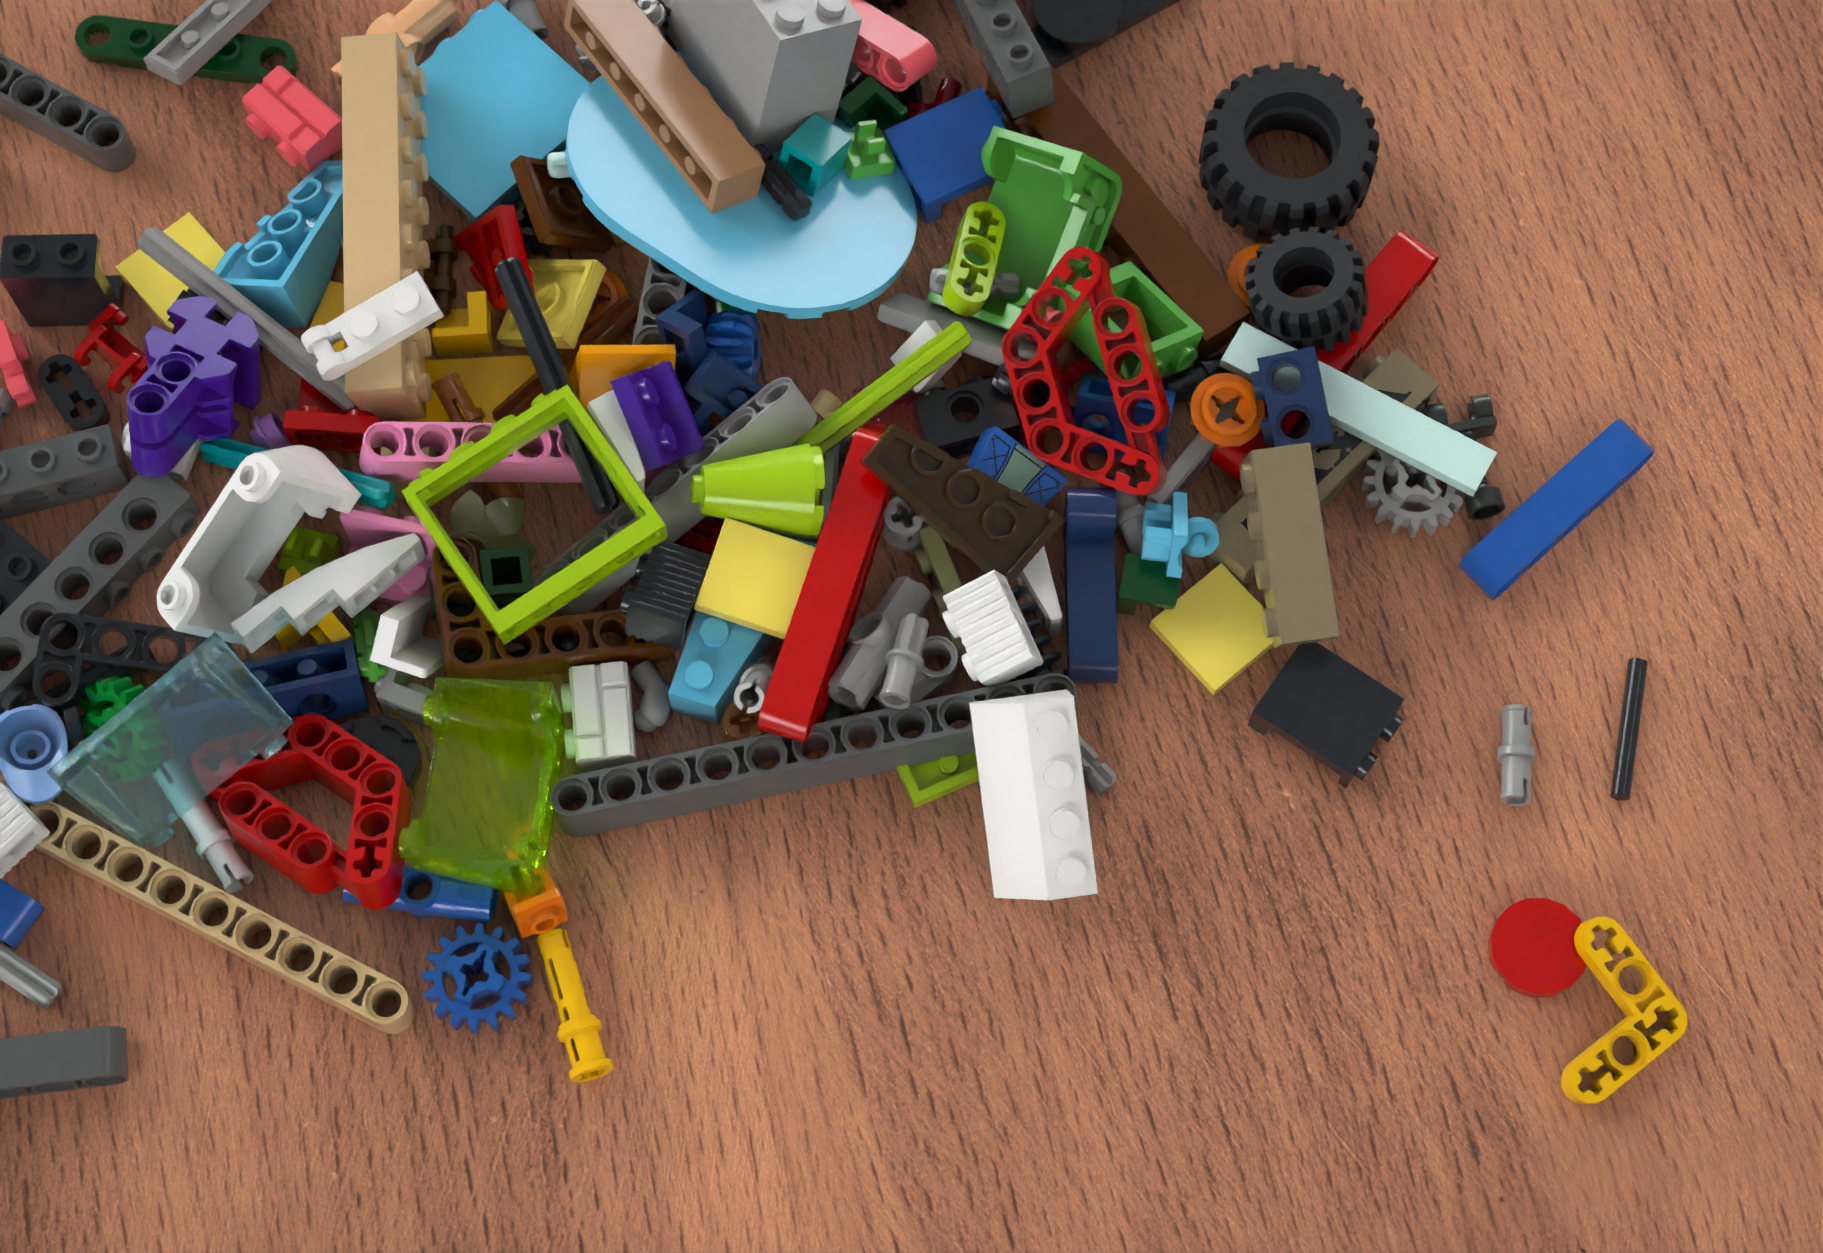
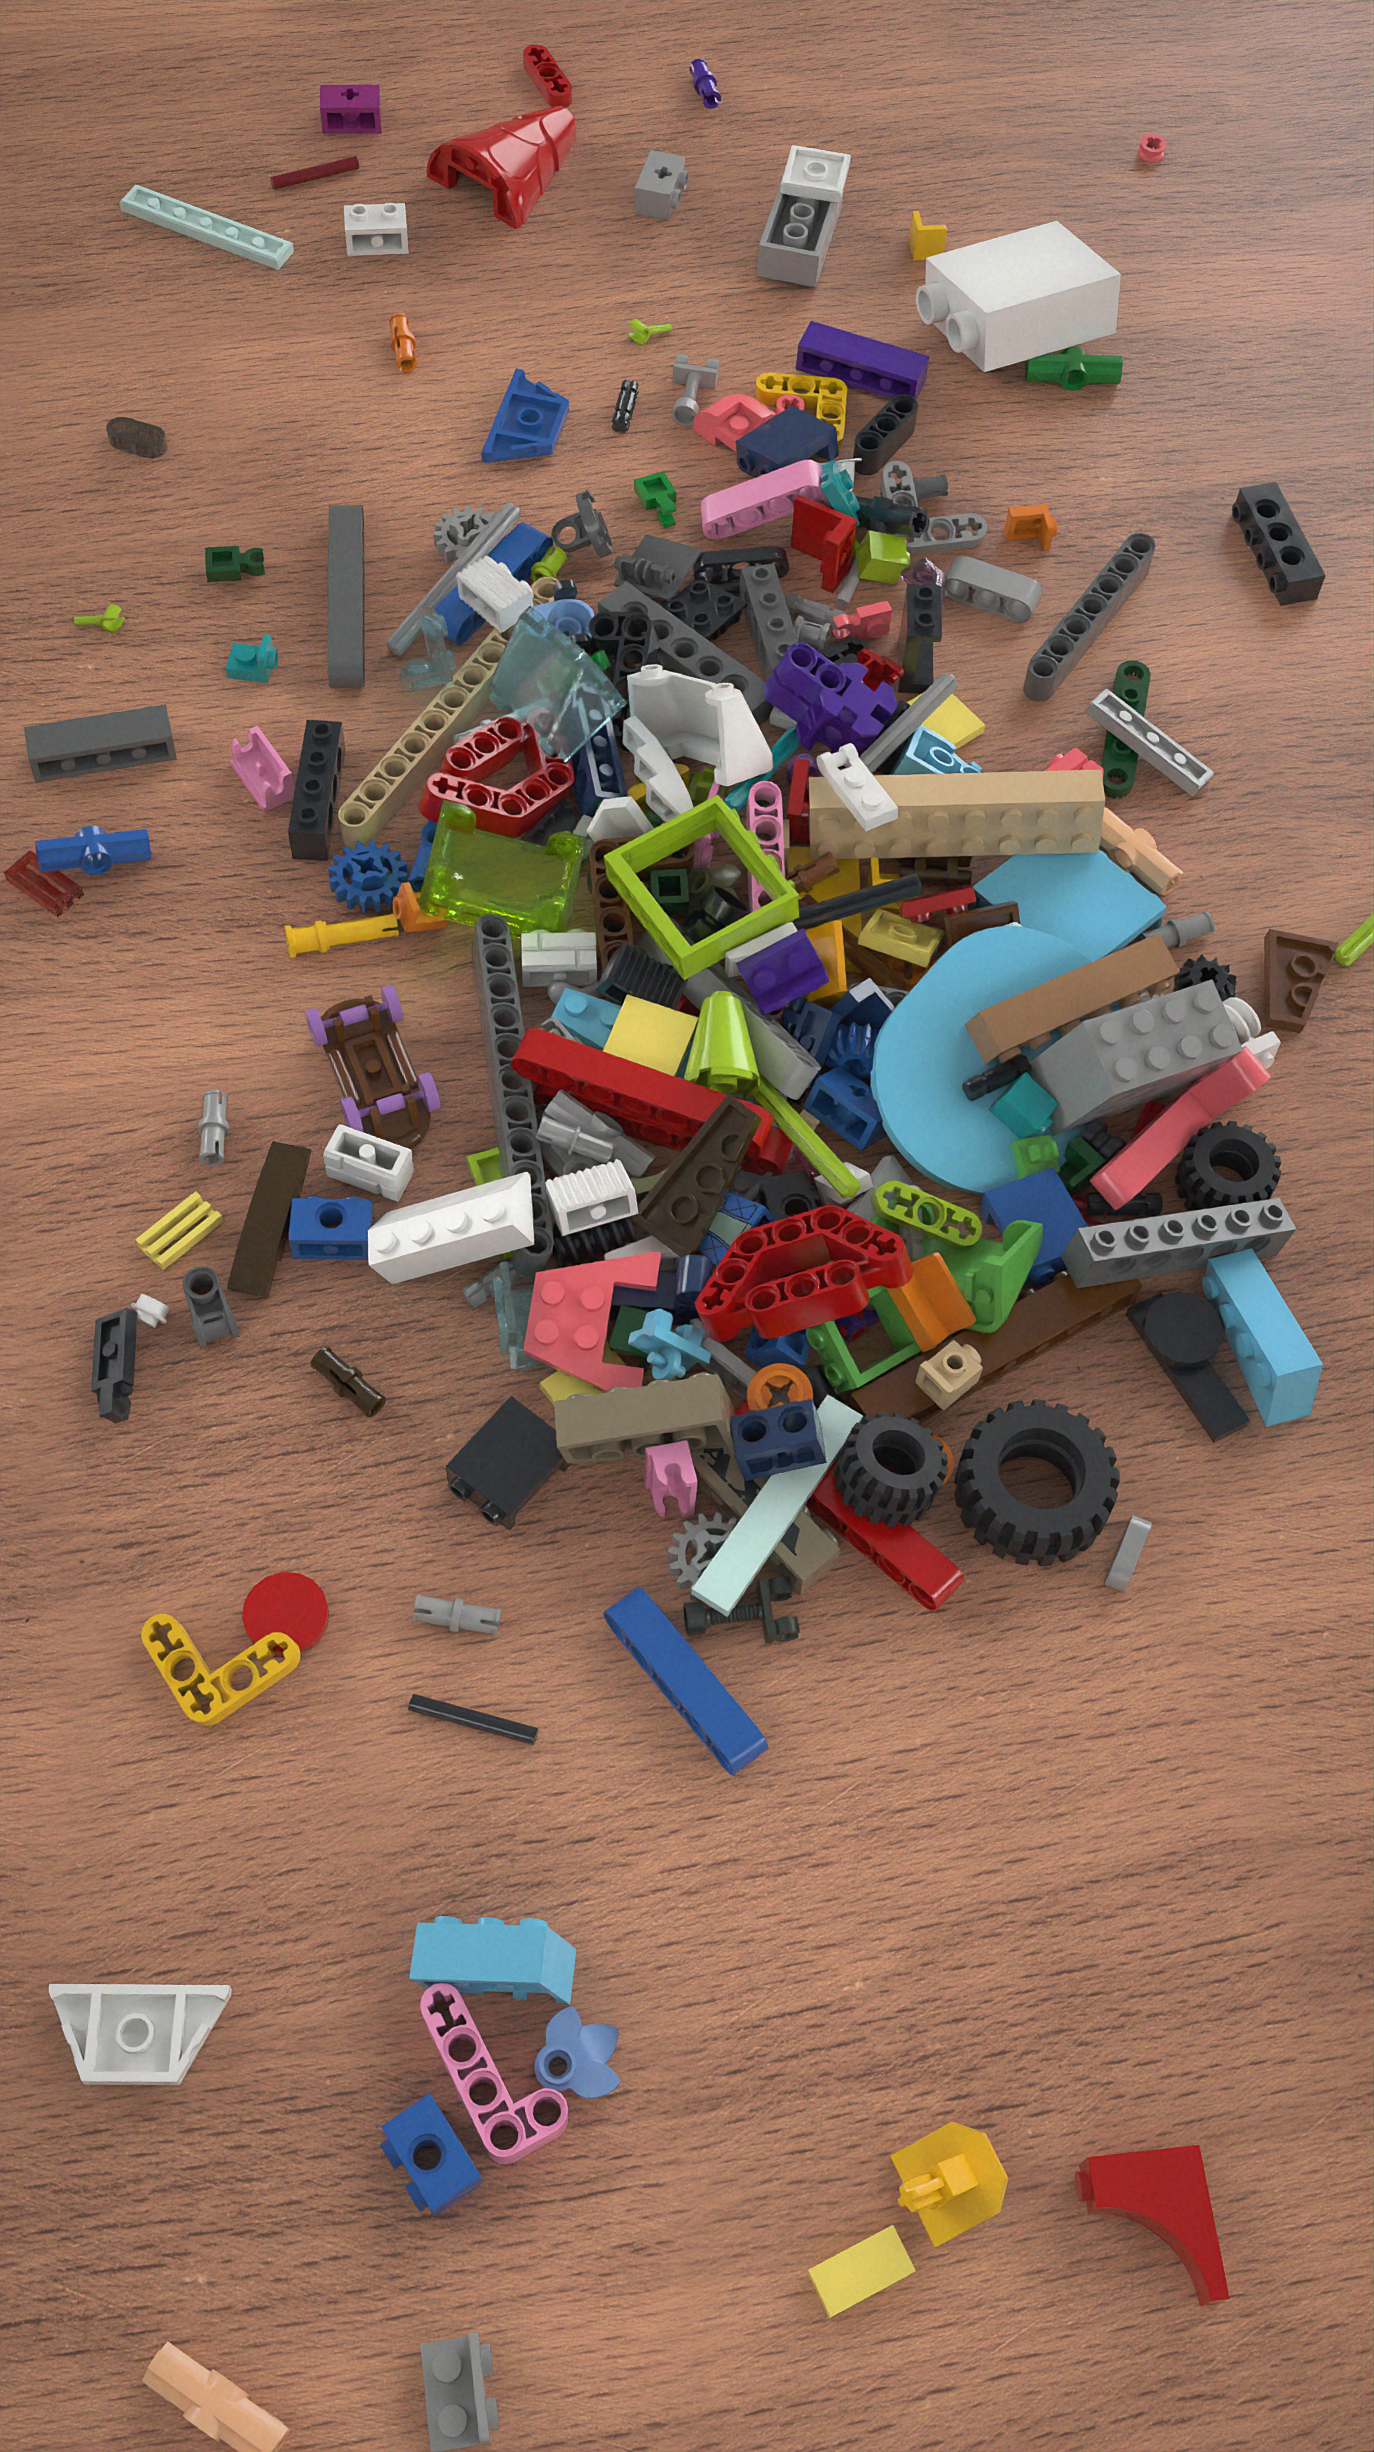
camera: 90 degrees right, 10 degrees down
(32, 424) = (812, 633): none -> light grey bush
(79, 1198) = (252, 661): none -> teal bracket
(111, 924) = (422, 674): none -> clear light blue bracket
(293, 1151) = (262, 771): none -> bright pink hinge
(329, 1065) = (317, 790): none -> black brick
(548, 523) = (717, 911): none -> black wheel
(787, 935) = (375, 1069): none -> reddish brown piece
(815, 354) = (846, 1107): none -> blue brick
(894, 1129) = (213, 1128): none -> light grey pin
(942, 916) = (368, 1162): none -> white brick
(1014, 1123) = (174, 1226): none -> light yellow tile
(1027, 1034) = (268, 1219): none -> dark brown slope
(1038, 926) = (346, 1242): none -> blue brick
(1100, 233) = (932, 1302): none -> orange panel
(1138, 648) = (573, 1314): none -> coral wing
(1140, 713) = (512, 1314): none -> clear light blue bracket
(1169, 1166) = (150, 1310): none -> white plate
(1171, 1088) = (209, 1312): none -> dark grey piece
(1177, 244) = (948, 1384): none -> tan brick
(1237, 913) = (348, 1382): none -> dark brown pin
(1247, 1197) = (114, 1363): none -> black hinge
(1338, 518) = (671, 1473): none -> bright pink hinge
(1363, 73) = (1128, 1553): none -> light grey beam

